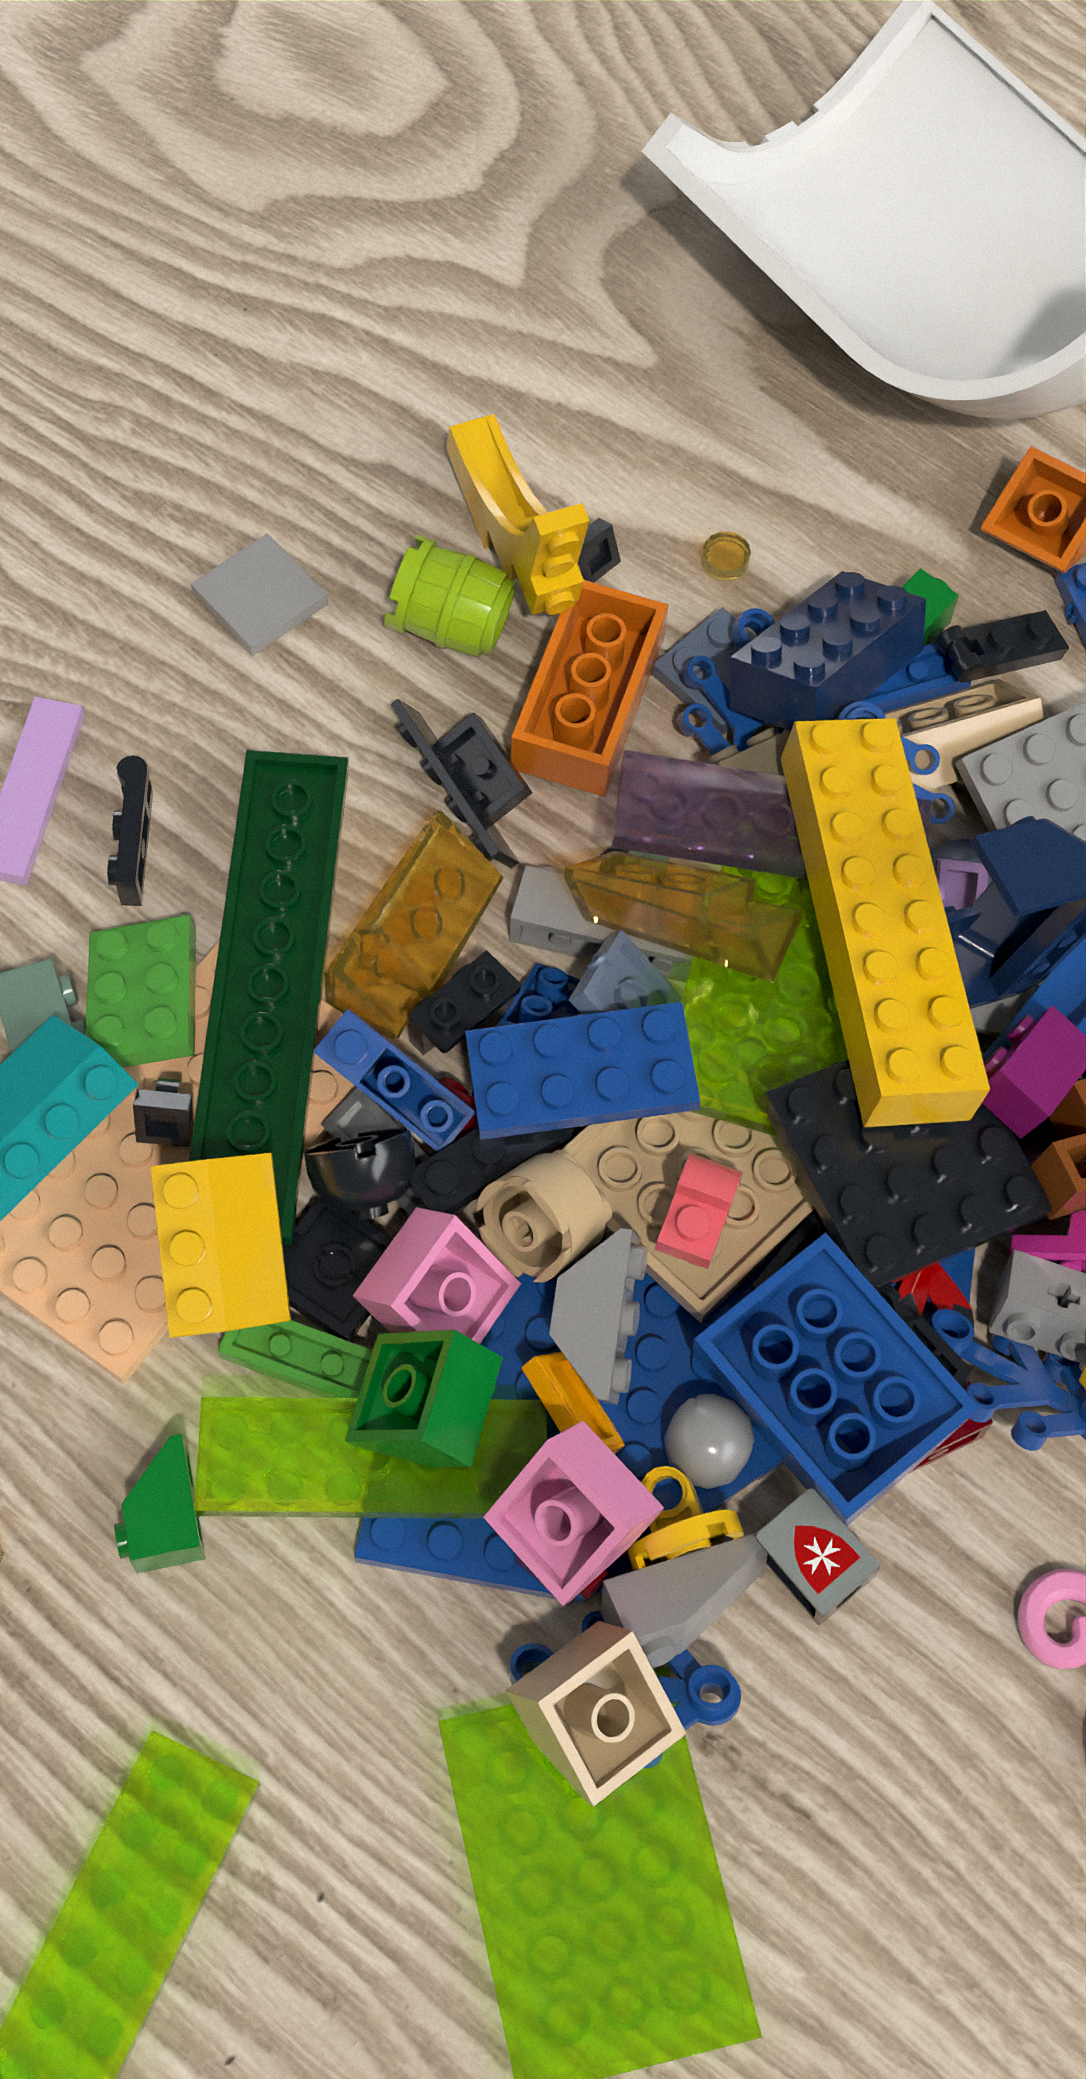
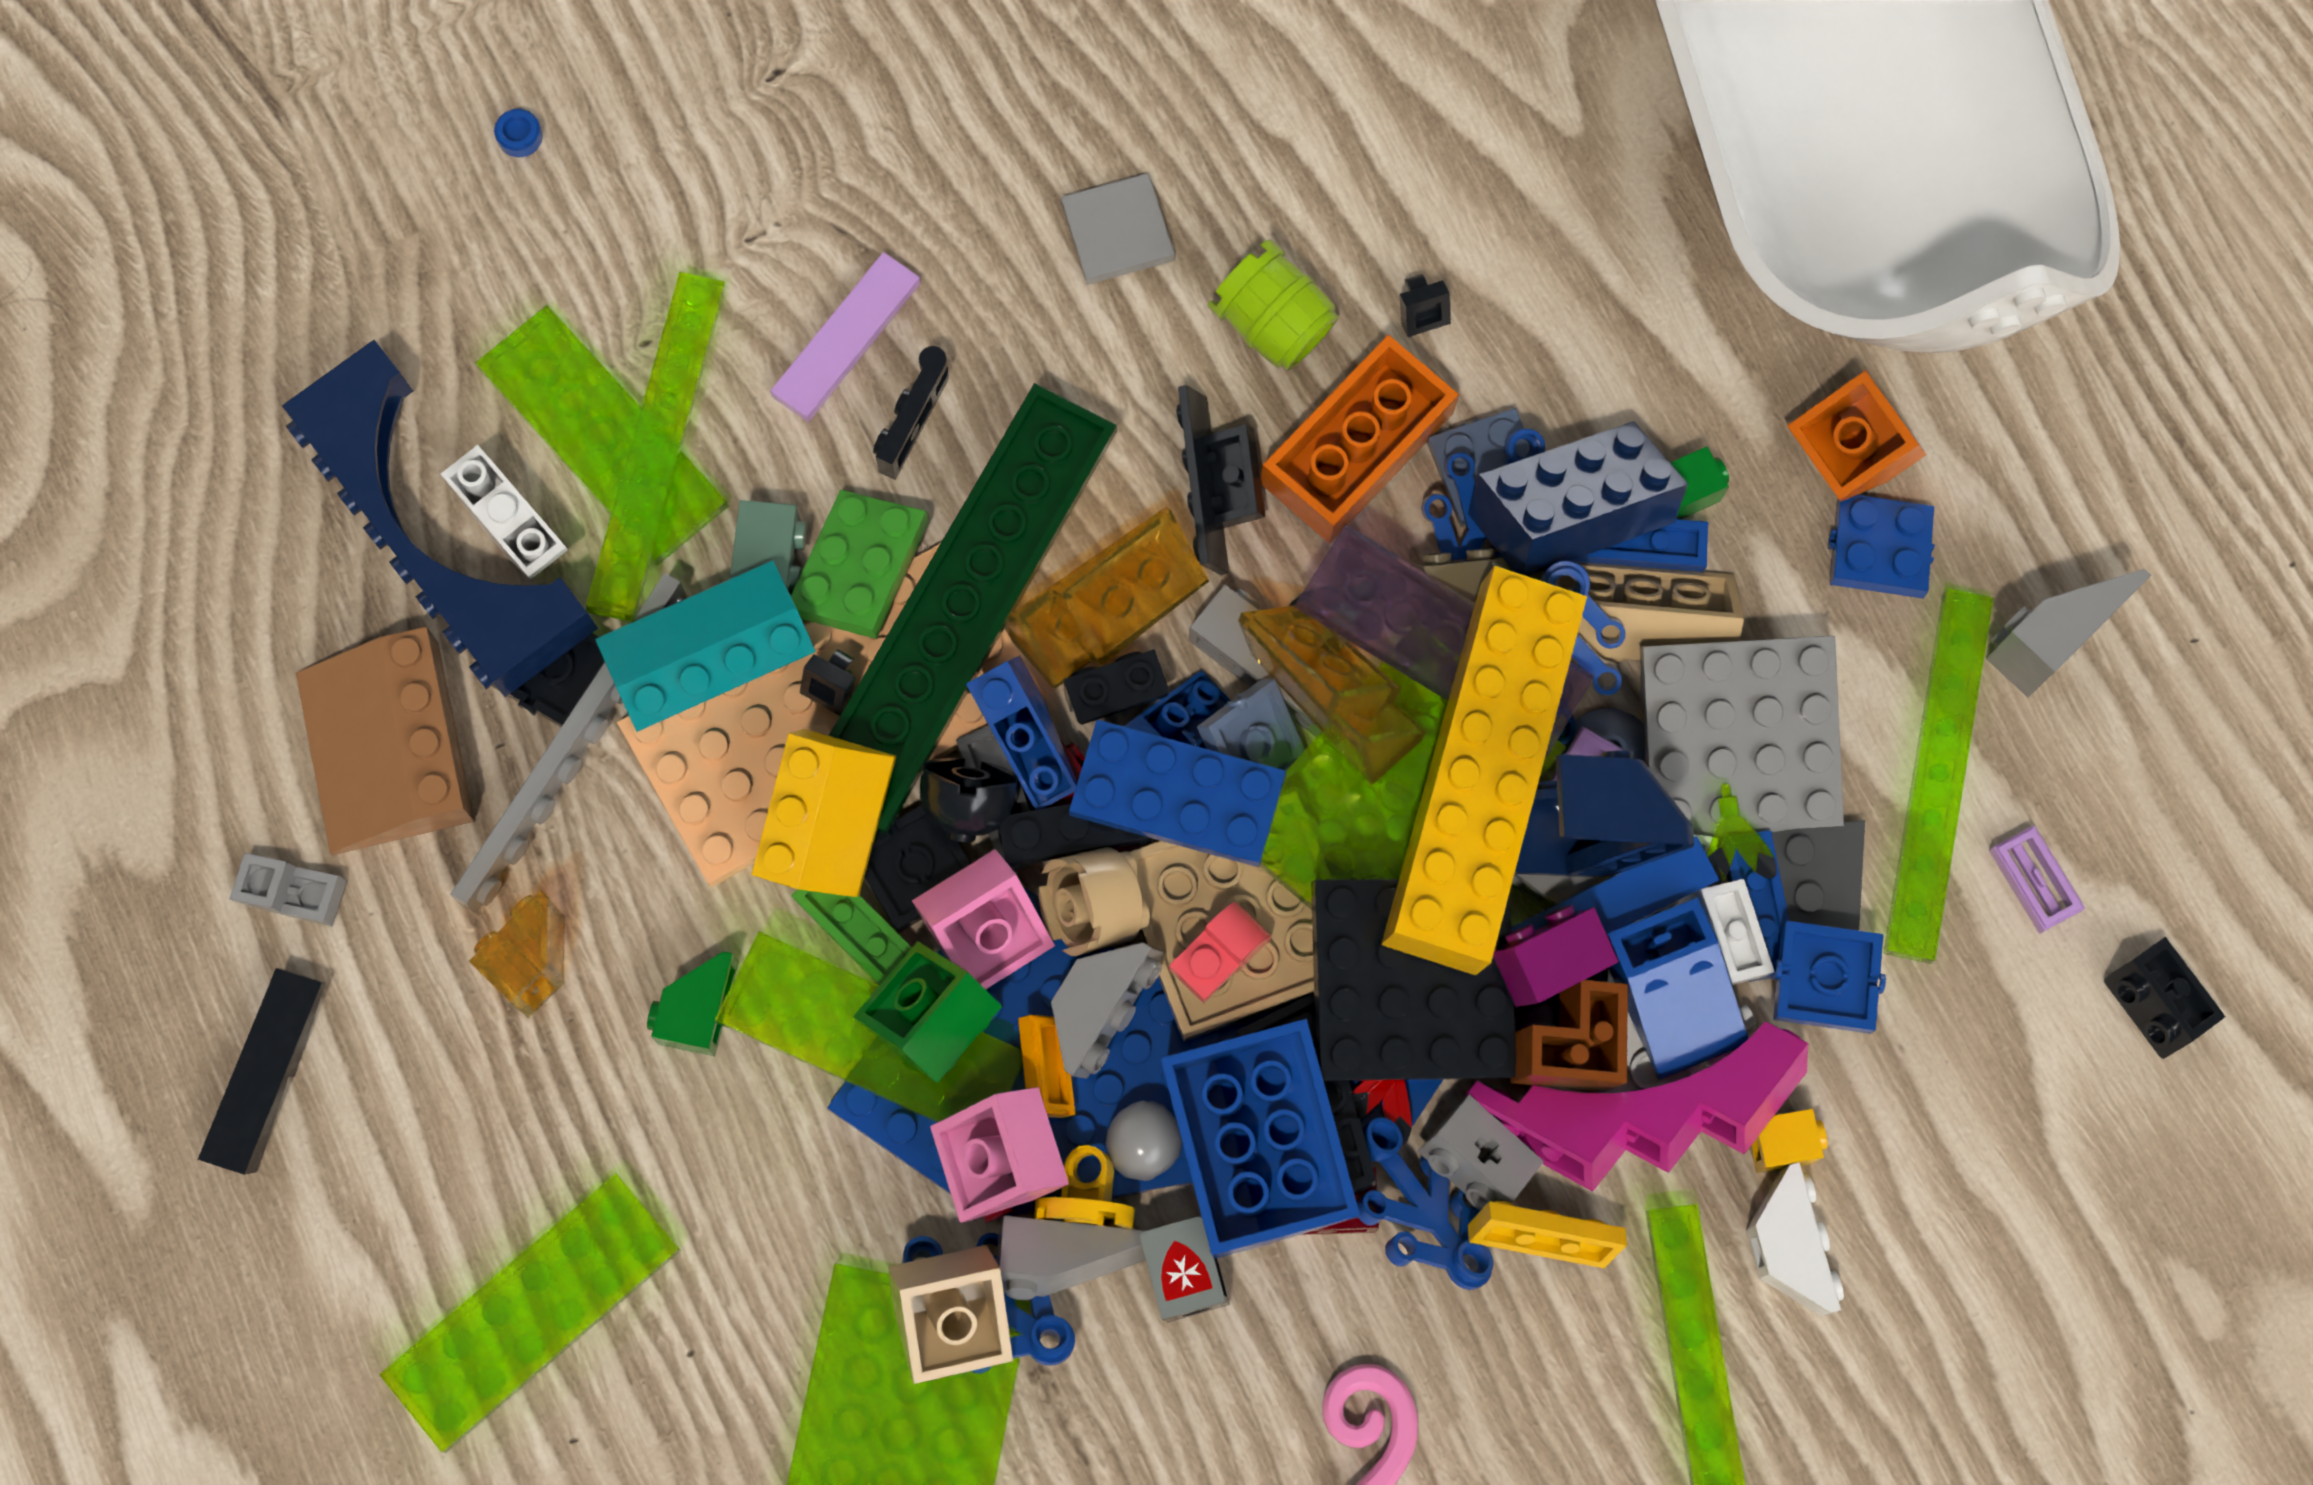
camera: 25 degrees right, 10 degrees up
(529, 541) = (1362, 254): yellow arch -> none
(726, 555) = (1546, 357): clear yellow piece -> none
(1002, 646) = (1748, 548): black plate -> none

